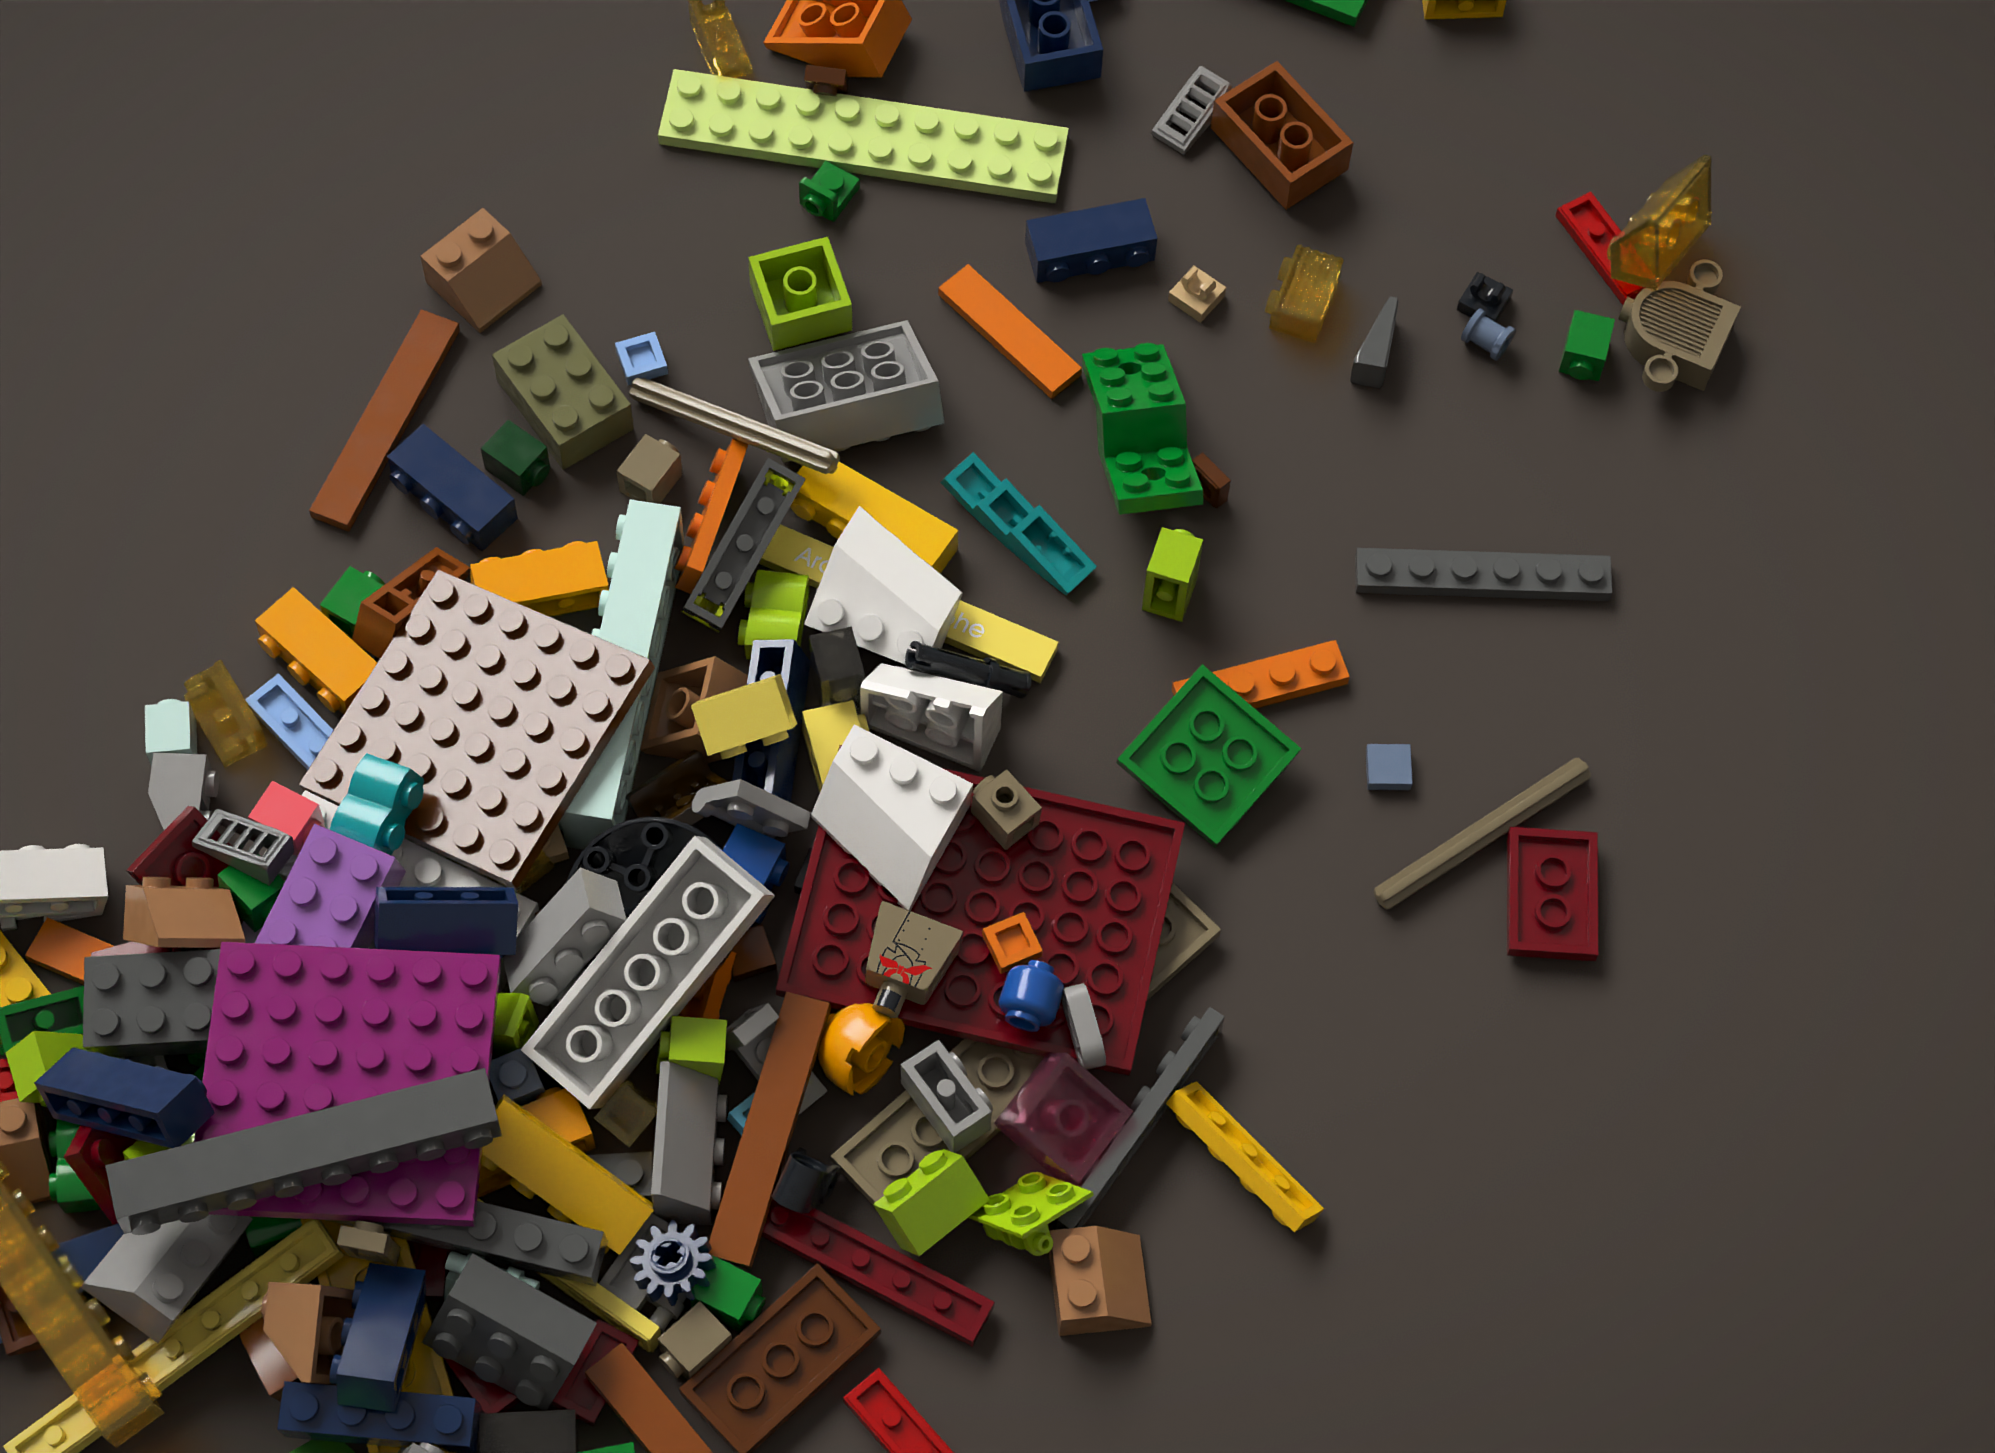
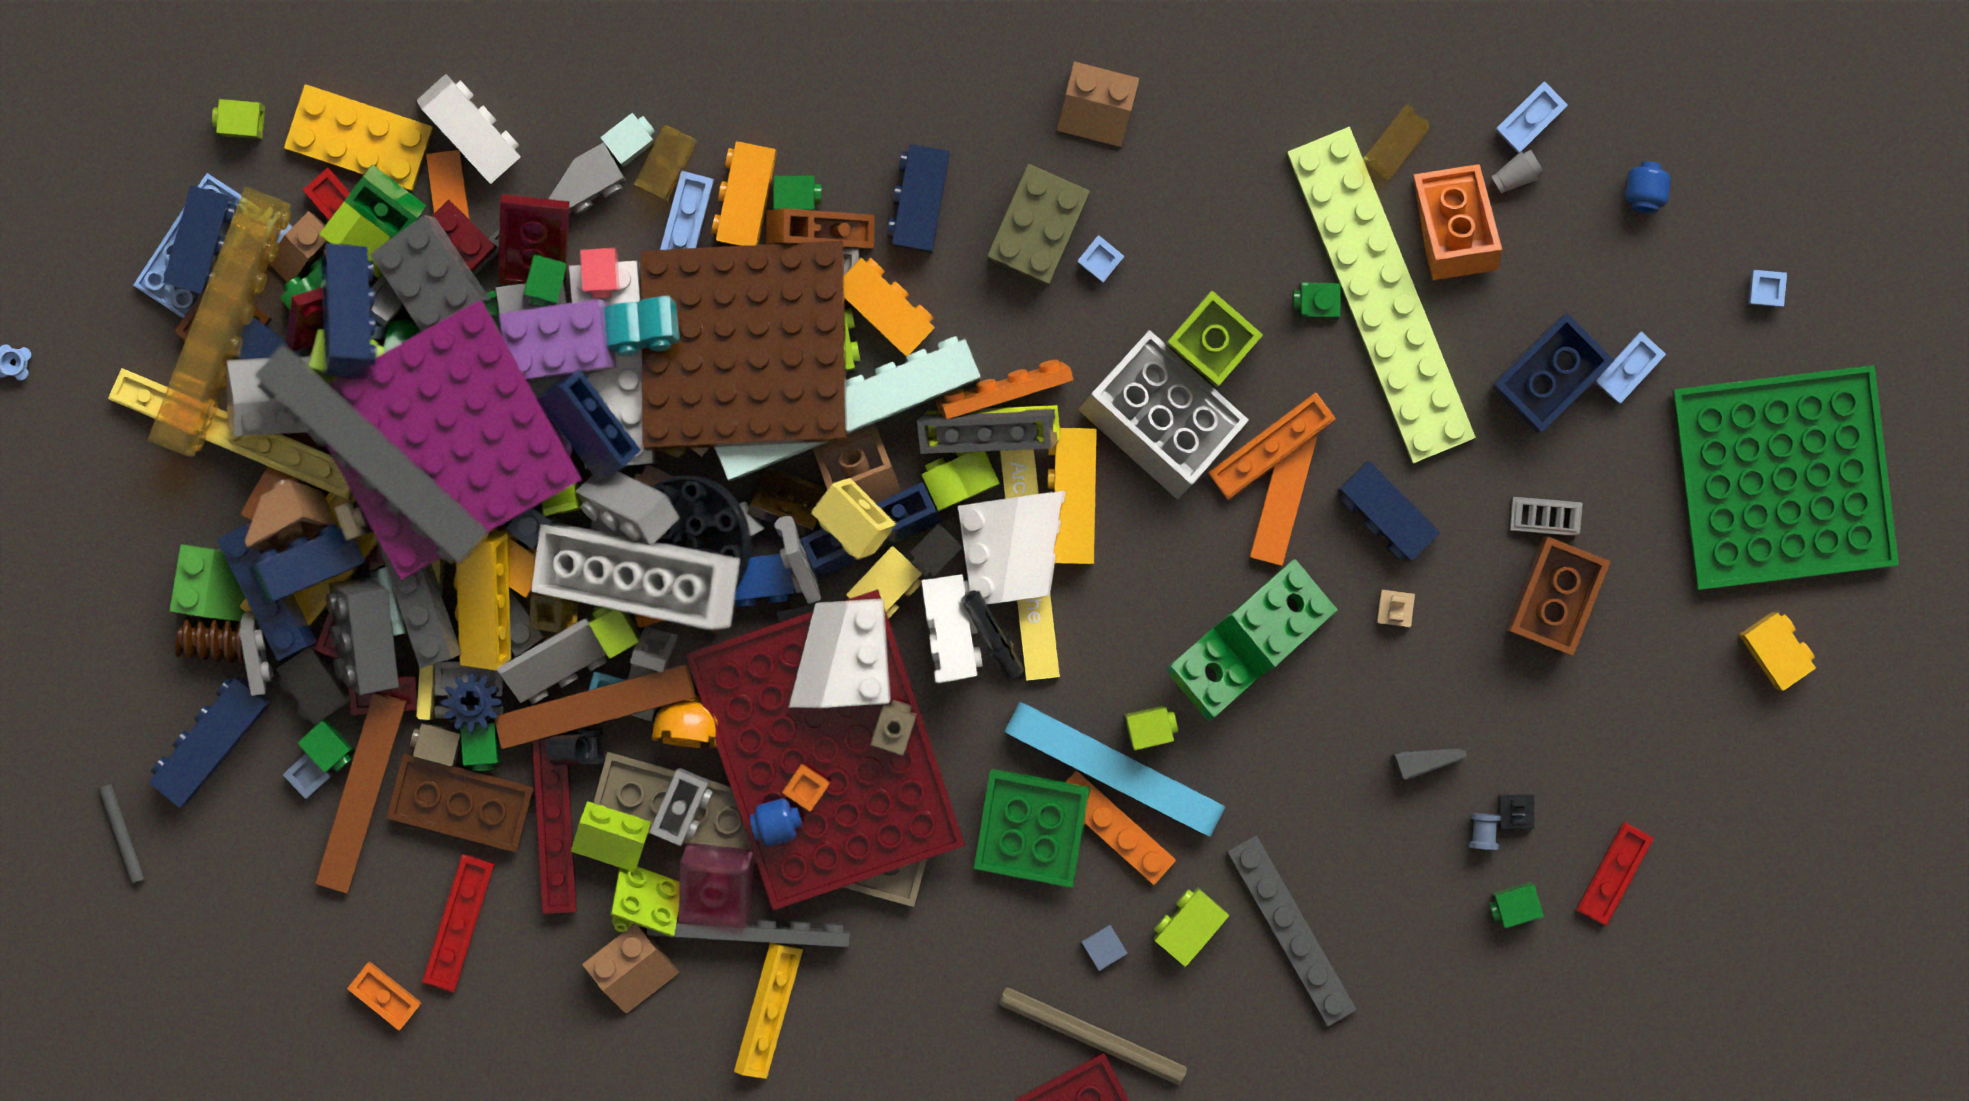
camera: 65 degrees right, 25 degrees up
(180, 915) = (491, 255): medium nougat slope -> none
(262, 868) = (566, 285): dark grey slope -> none
(384, 420) = (947, 114): dark orange tile -> none
(516, 458) = (969, 227): dark green brick -> none
(650, 470) = (1017, 323): dark tan brick -> none
(735, 425) = (1077, 363): dark tan axle -> none
(826, 80) = (1405, 242): reddish brown plate -> none
(908, 957) = (752, 729): dark tan torso -> none
(950, 307) = (1272, 446): none -> orange tile
(1018, 525) = (1132, 595): teal slope -> none
(1083, 1026) = (777, 866): light grey beam -> none
(1194, 641) = (1115, 769): none -> medium azure beam
(1212, 479) = (1245, 706): reddish brown tile -> none
(1305, 293) = (1438, 685): clear yellow brick -> none
(1418, 663) = (1190, 925): none -> lime brick
(1664, 227) = (1640, 910): clear yellow slope -> none
(1679, 328) = (1570, 963): dark tan piece -> none

